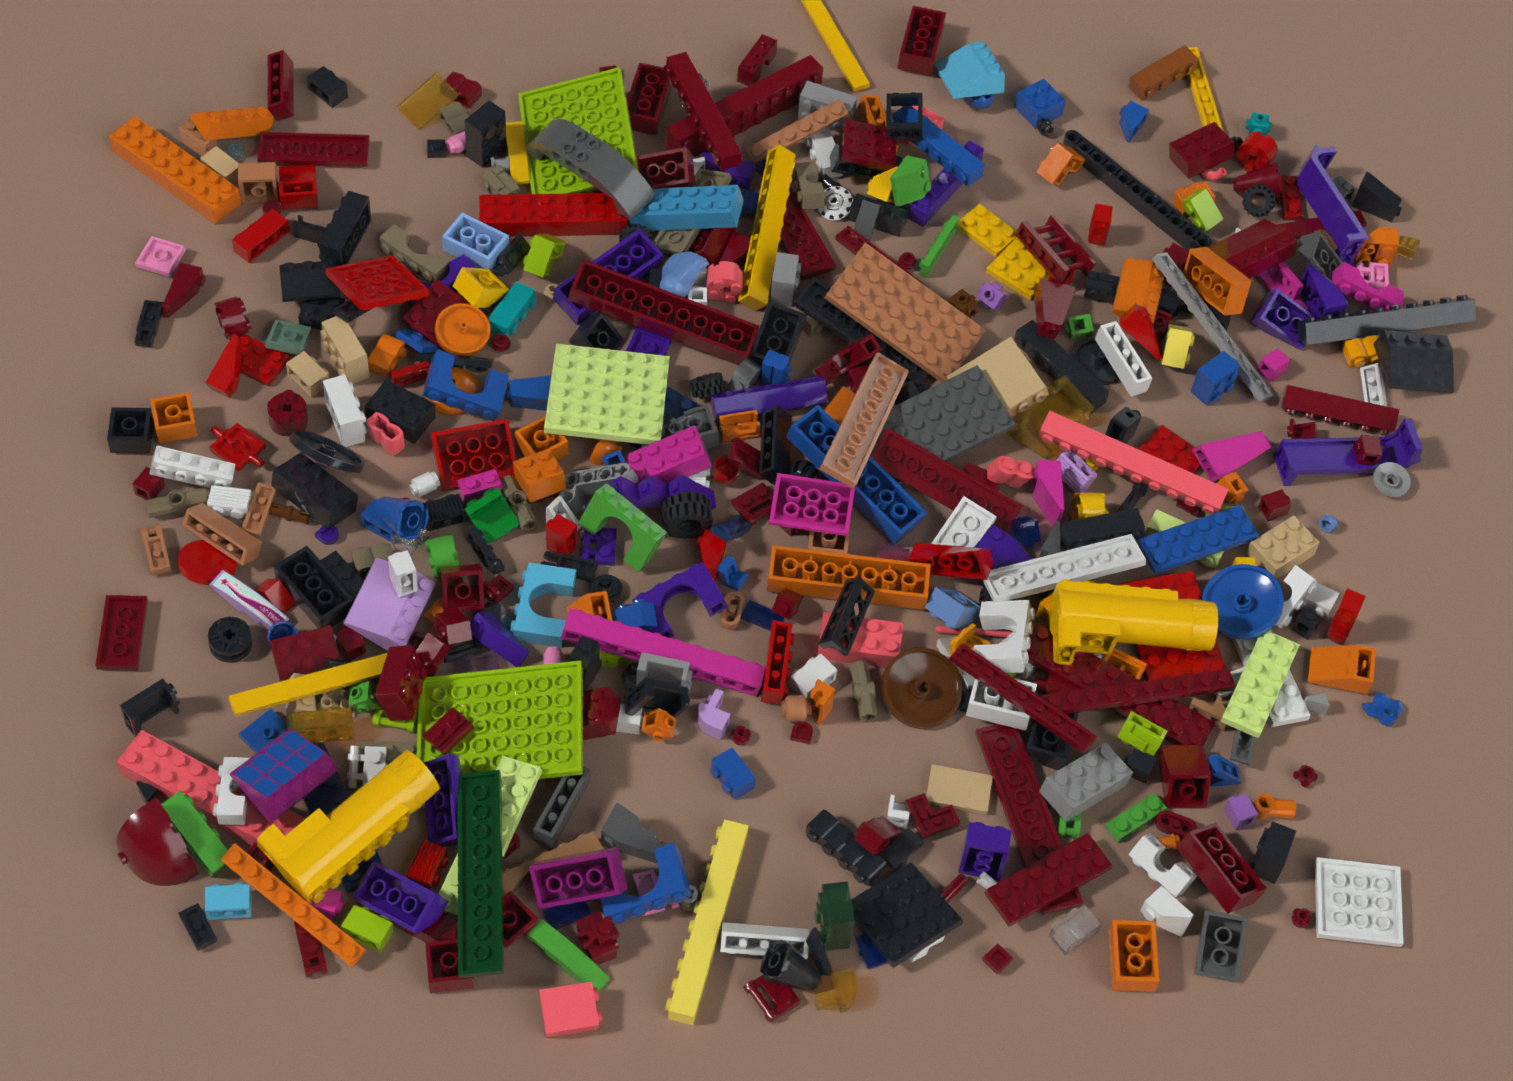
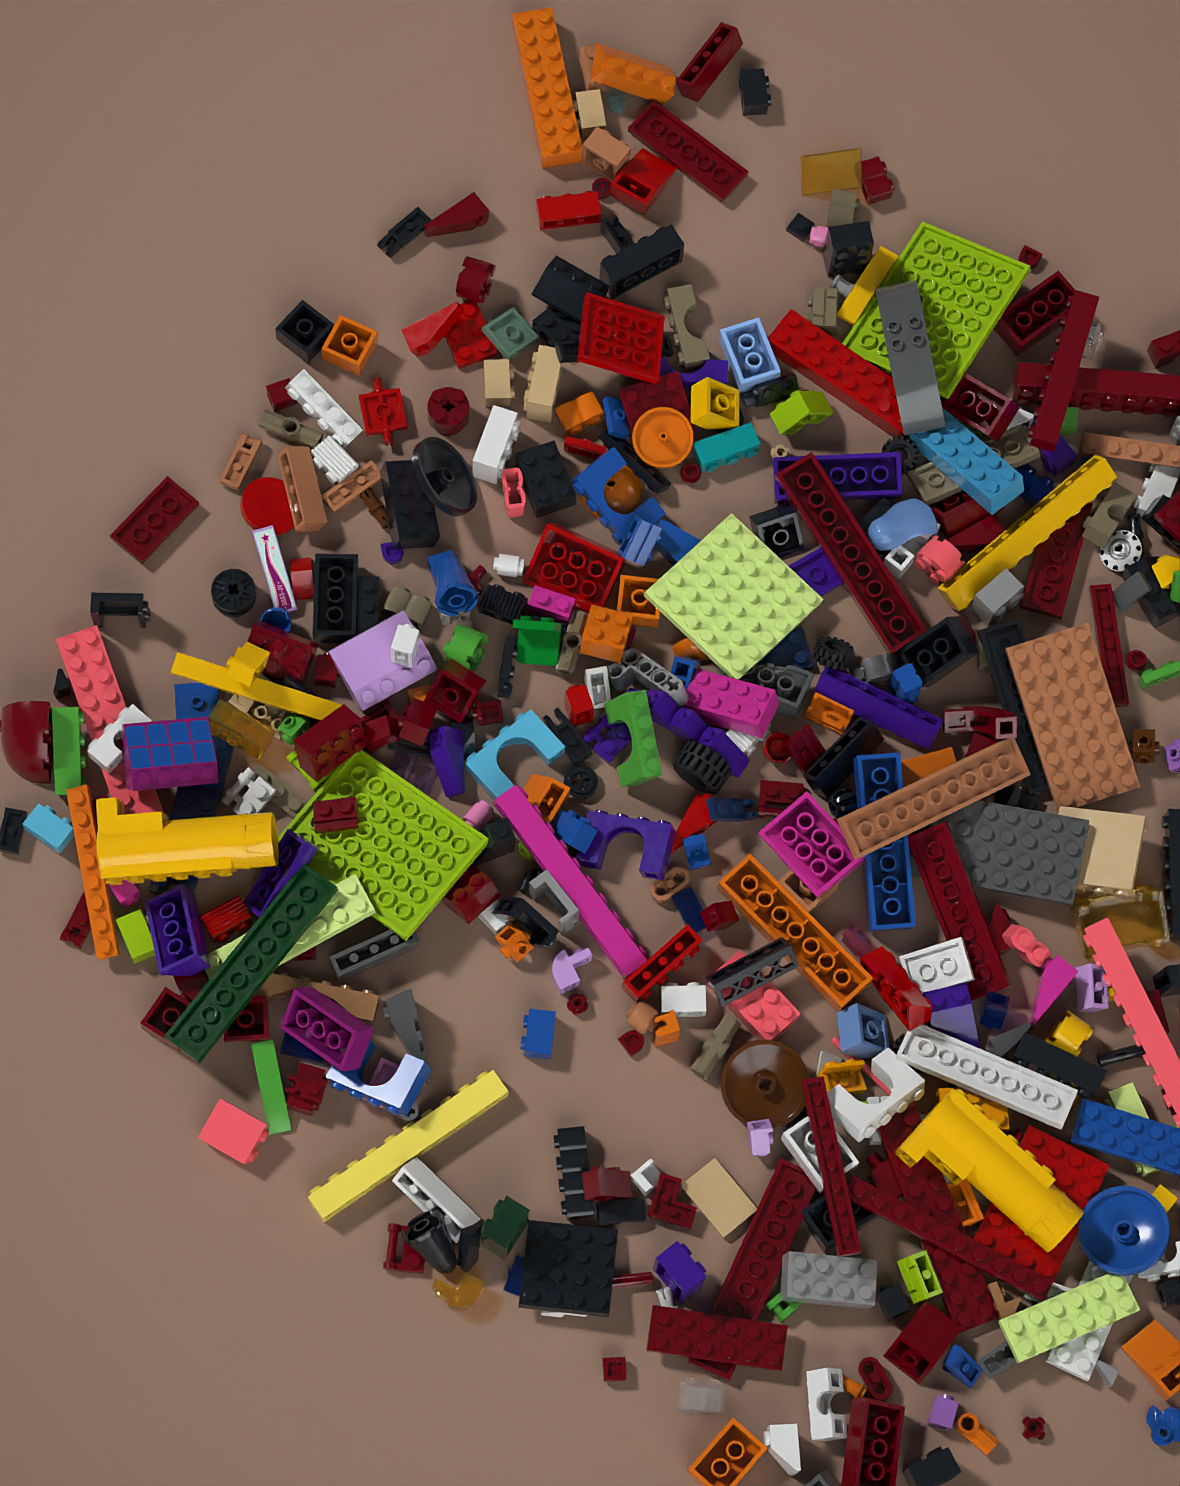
camera: 40 degrees right, 15 degrees up
(160, 256) = (466, 170): bright pink plate -> none
(290, 667) = (247, 663): none -> yellow brick
(508, 400) = (640, 540): none -> blue brick
(950, 725) = (760, 1137): none -> lavender brick
(1135, 817) = (848, 1344): bright green plate -> none

